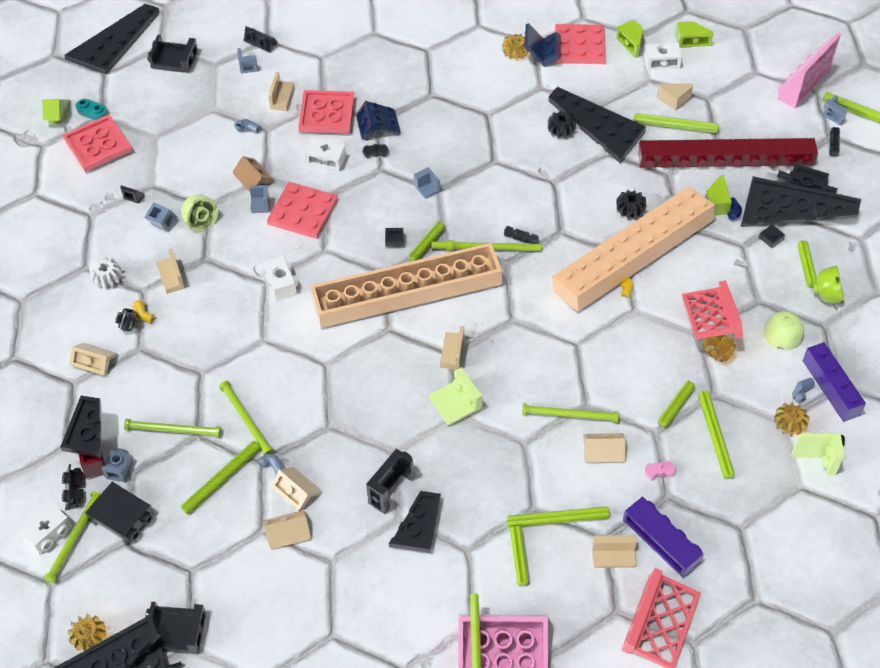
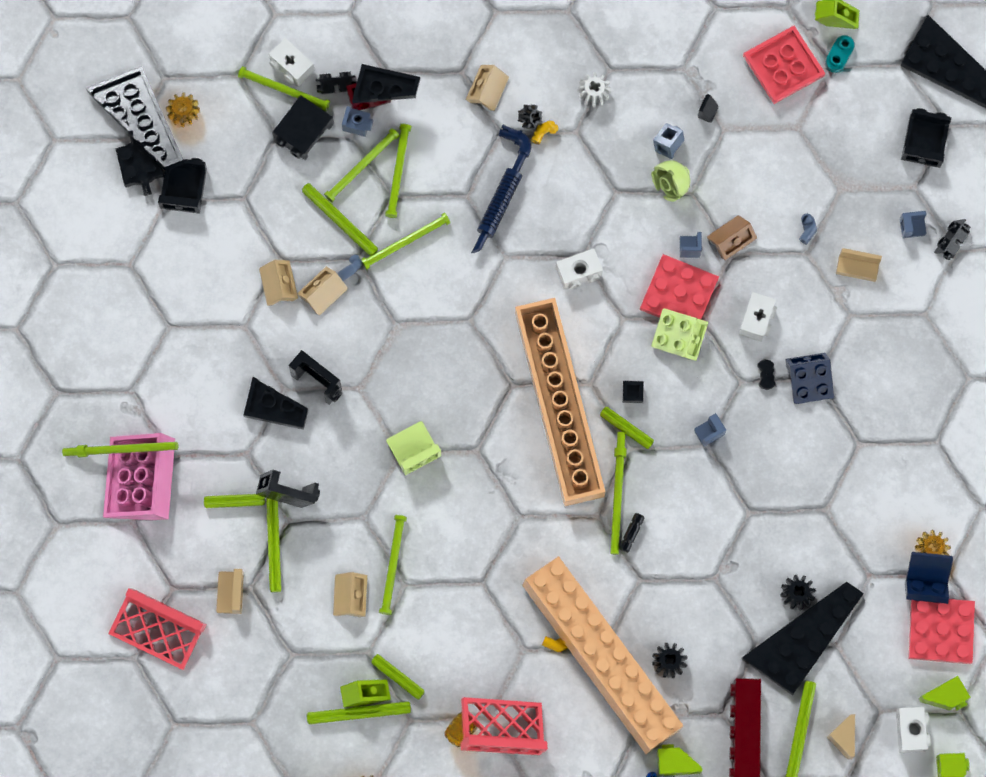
camera: 90 degrees right, 20 degrees up
(134, 434) = (393, 134): none -> lime bar
(170, 274) = (593, 156): tan panel -> none
(196, 337) = (505, 189): none -> dark blue piece
(326, 111) = (827, 318): coral plate -> none
(341, 204) = (679, 334): none -> yellowish green bracket
(452, 350) = (478, 448): tan panel -> none
(508, 496) = (269, 488): none -> black panel
(659, 469) = (322, 654): bright pink piece -> none
(663, 536) = (242, 639): dark purple brick -> none
(698, 428) = (365, 692): none -> lime slope

